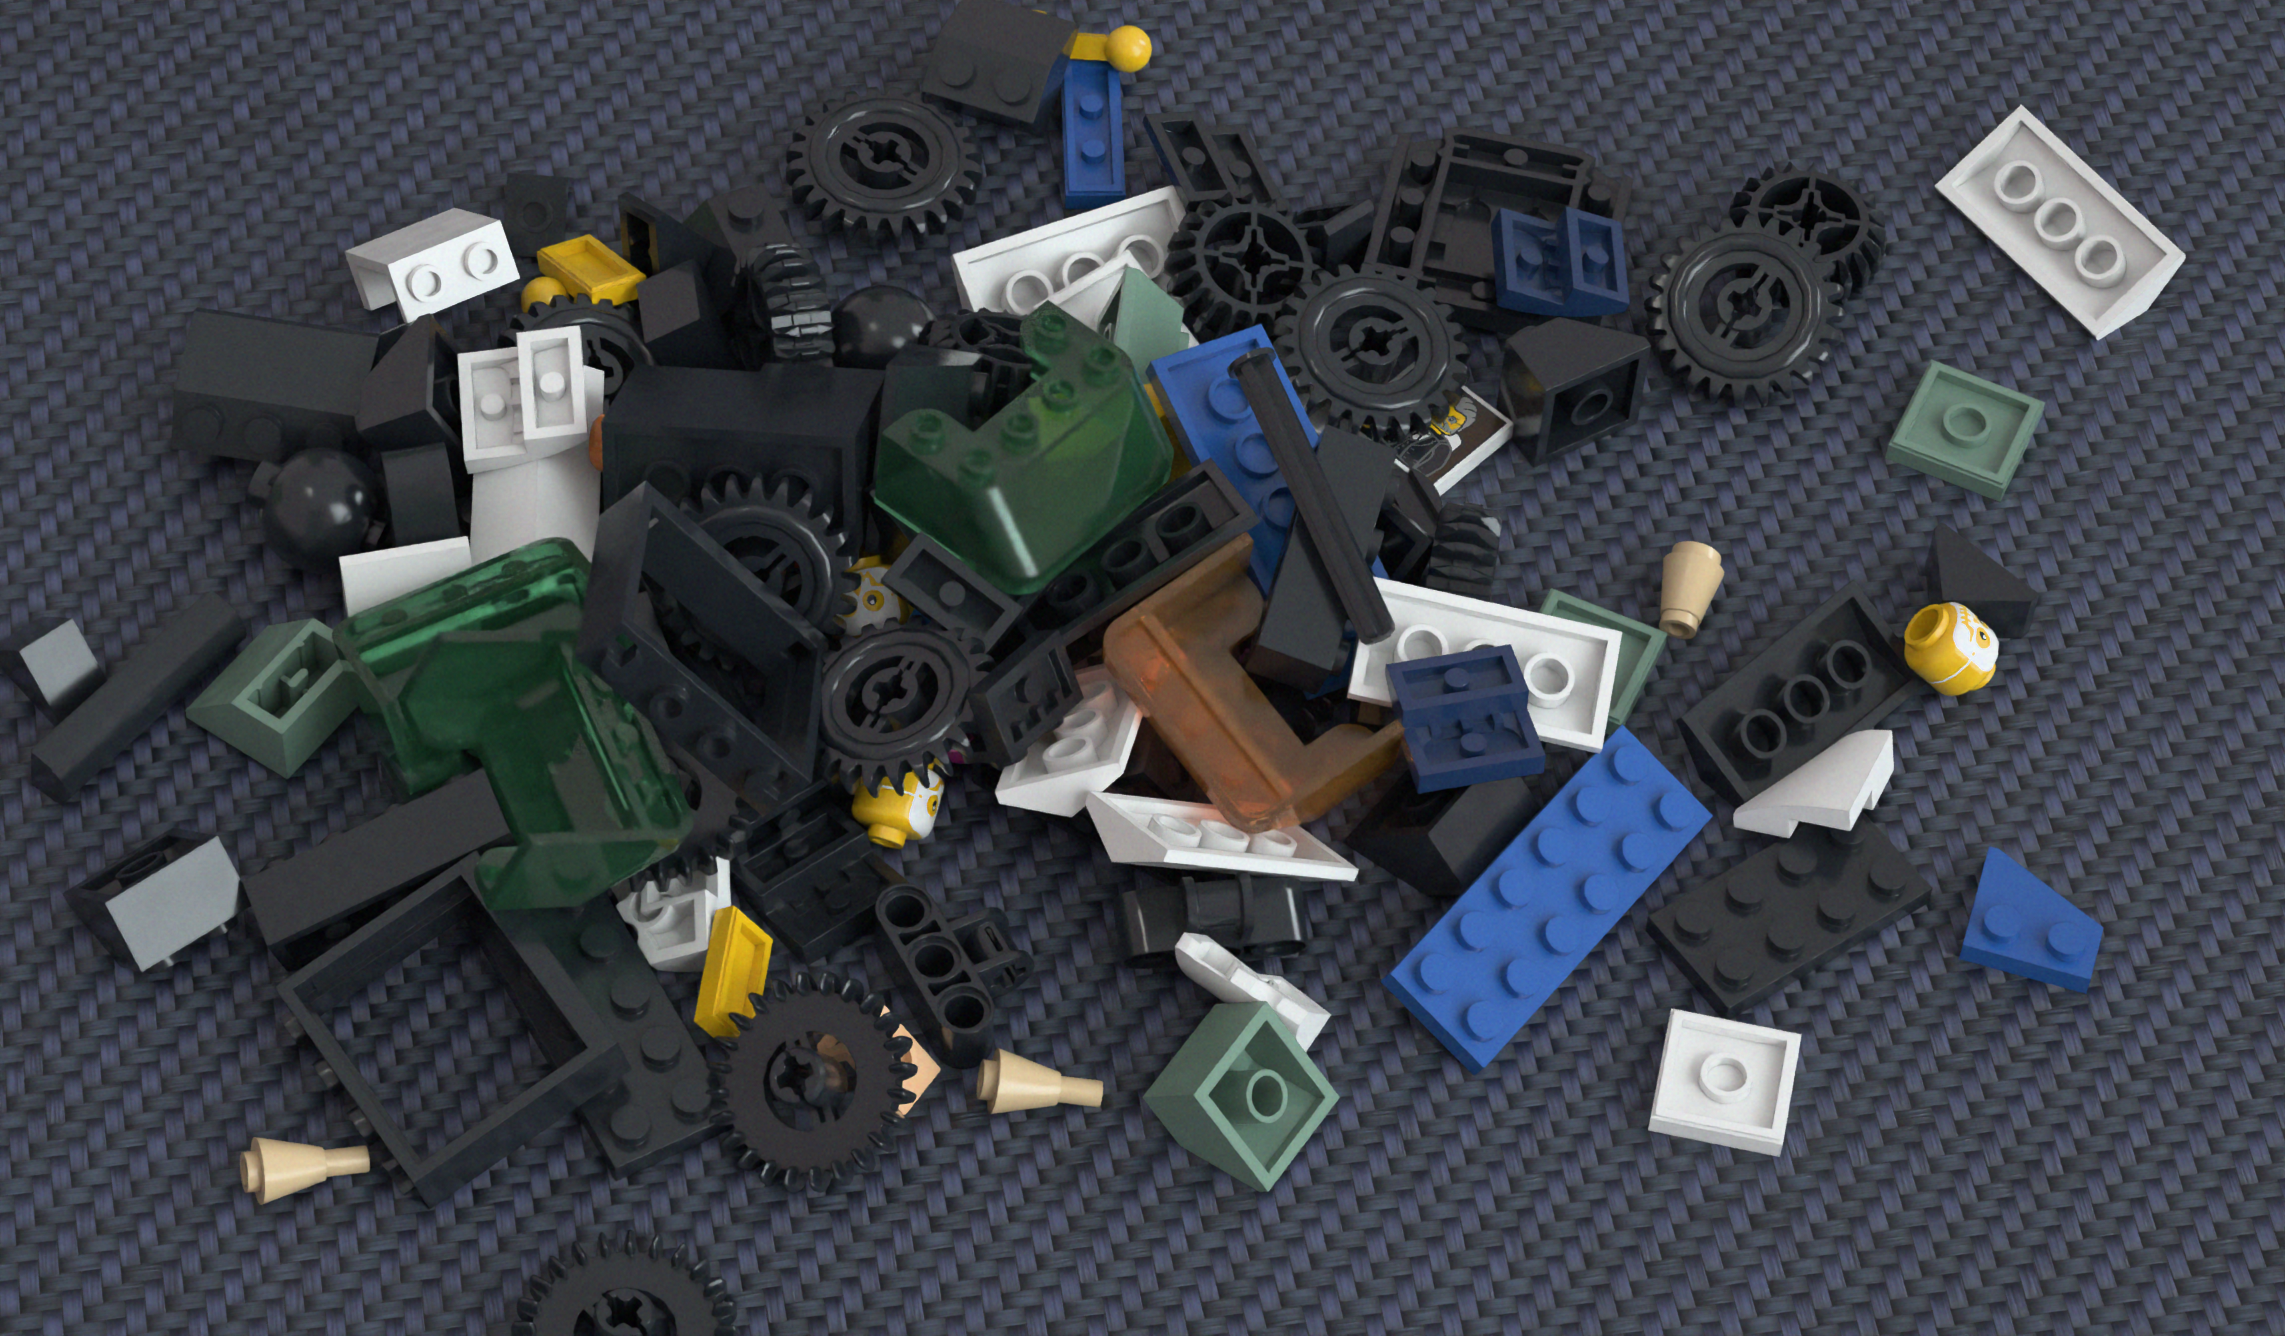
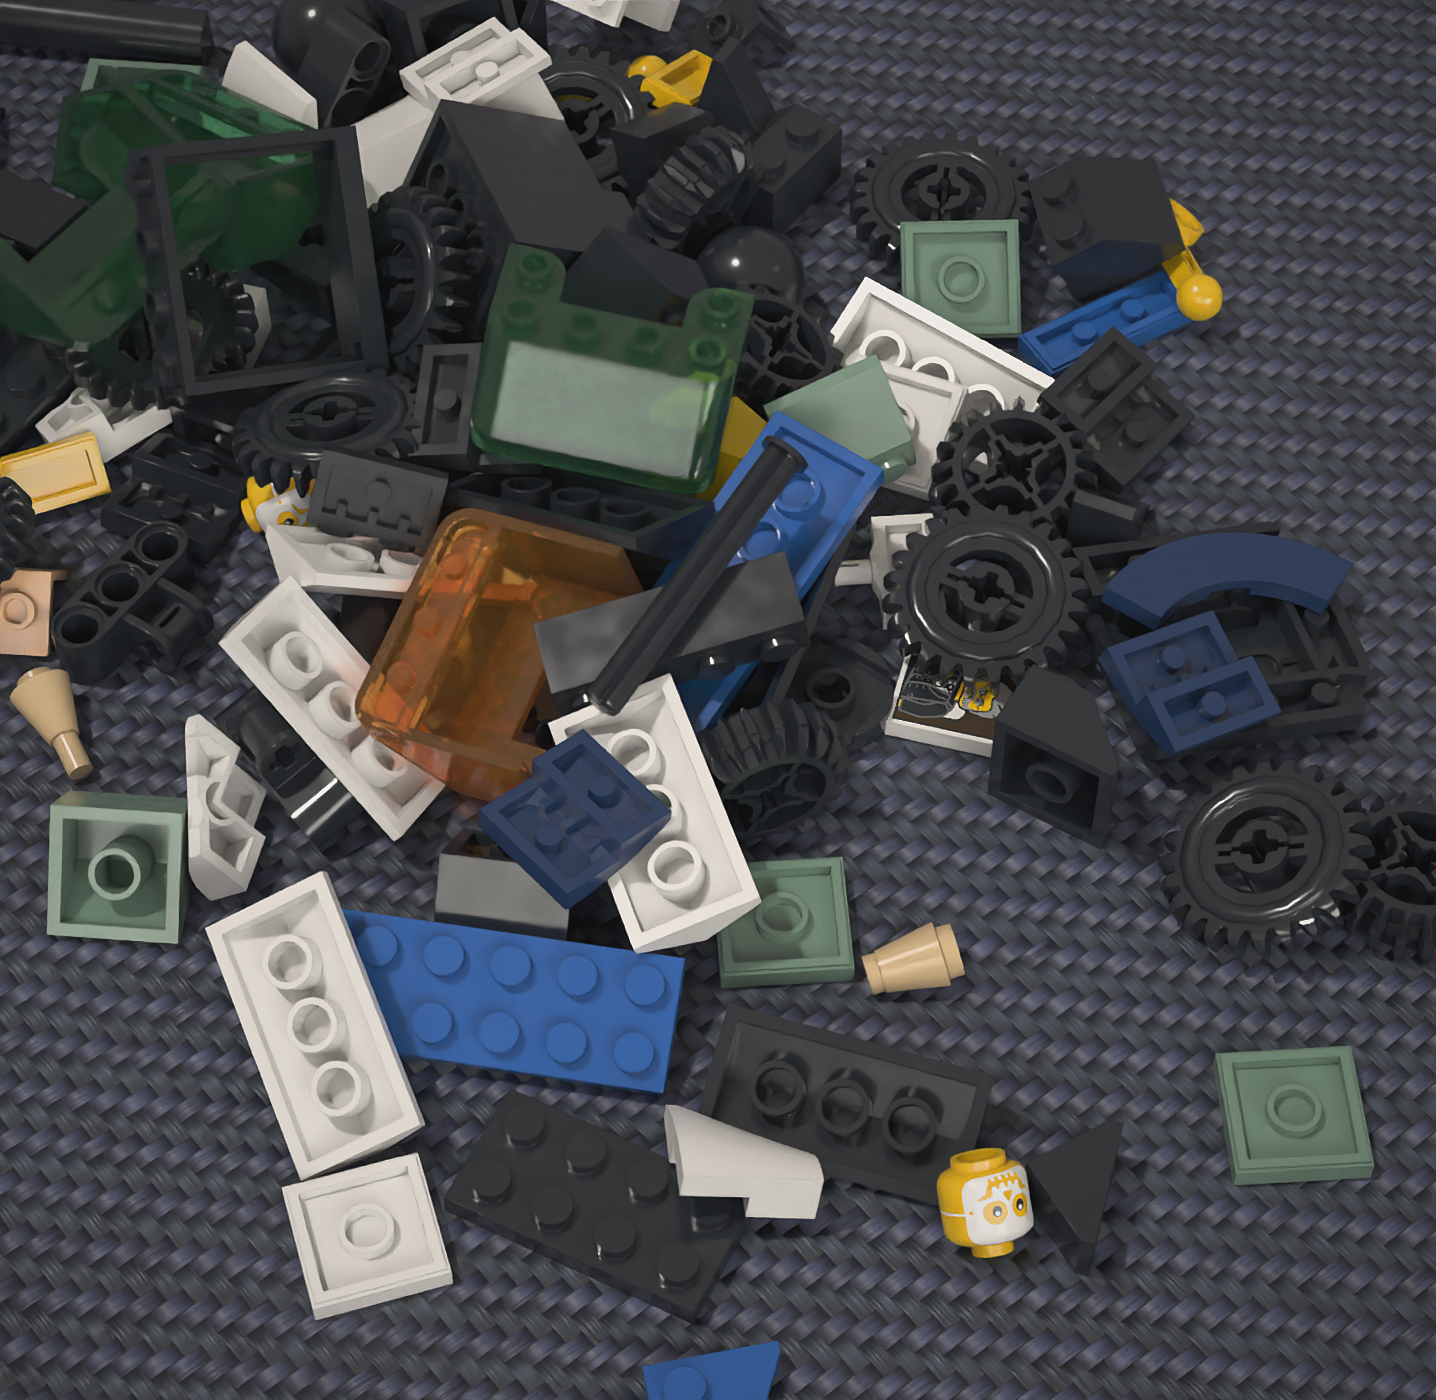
camera: 65 degrees right, 0 degrees up
(985, 189) = (964, 273): none -> sand green tile
(1440, 185) = (1194, 566): none -> dark blue tile
(1531, 1006) = (315, 1027): none -> white slope

